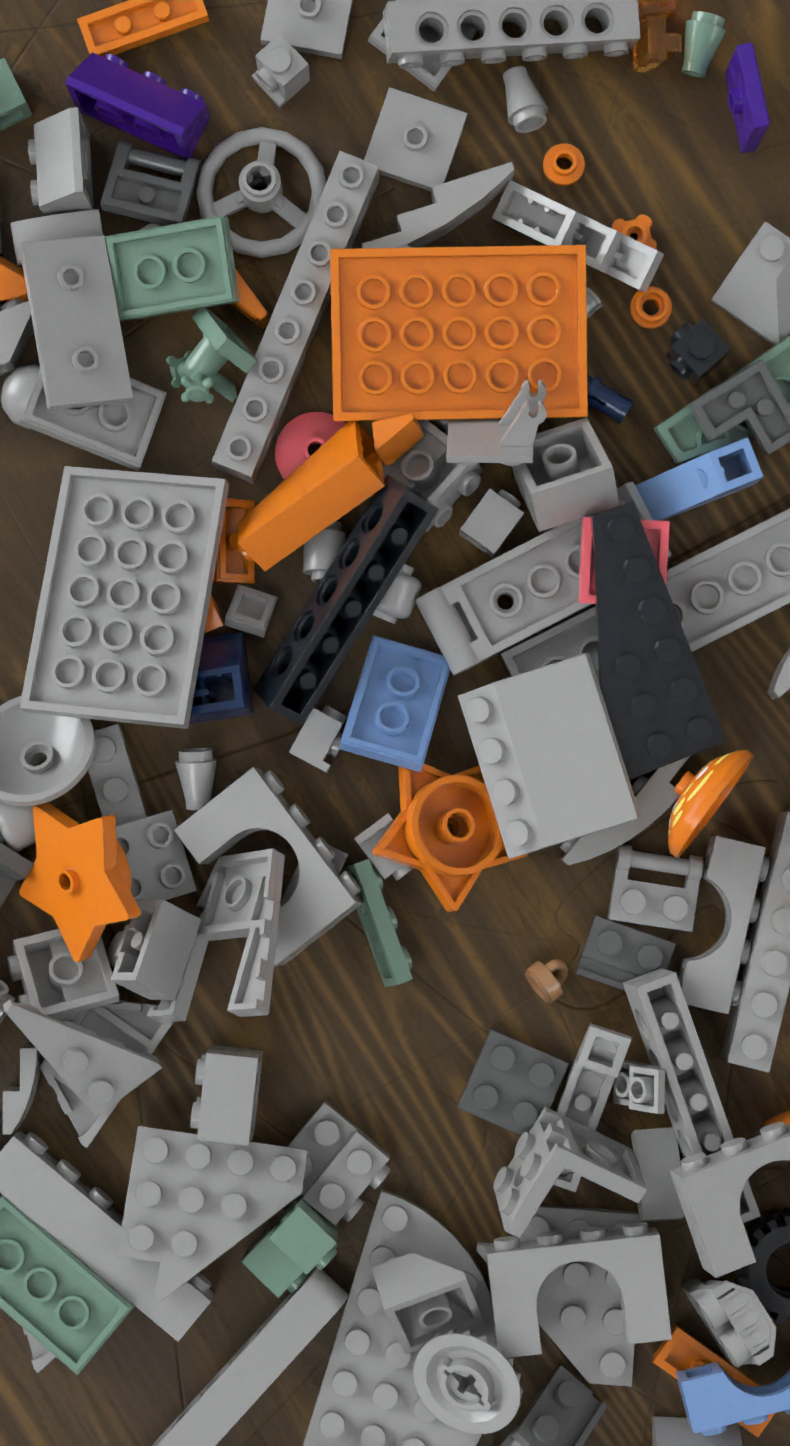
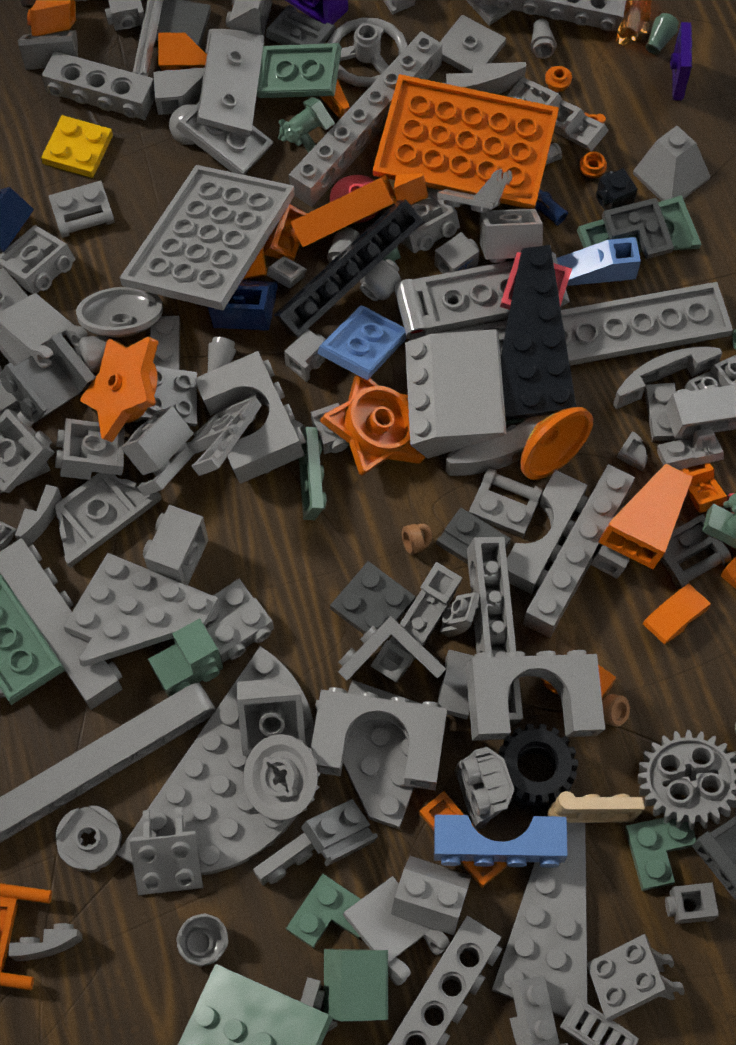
camera: 15 degrees right, 20 degrees down
(92, 1066) = (89, 502): light grey wing -> none

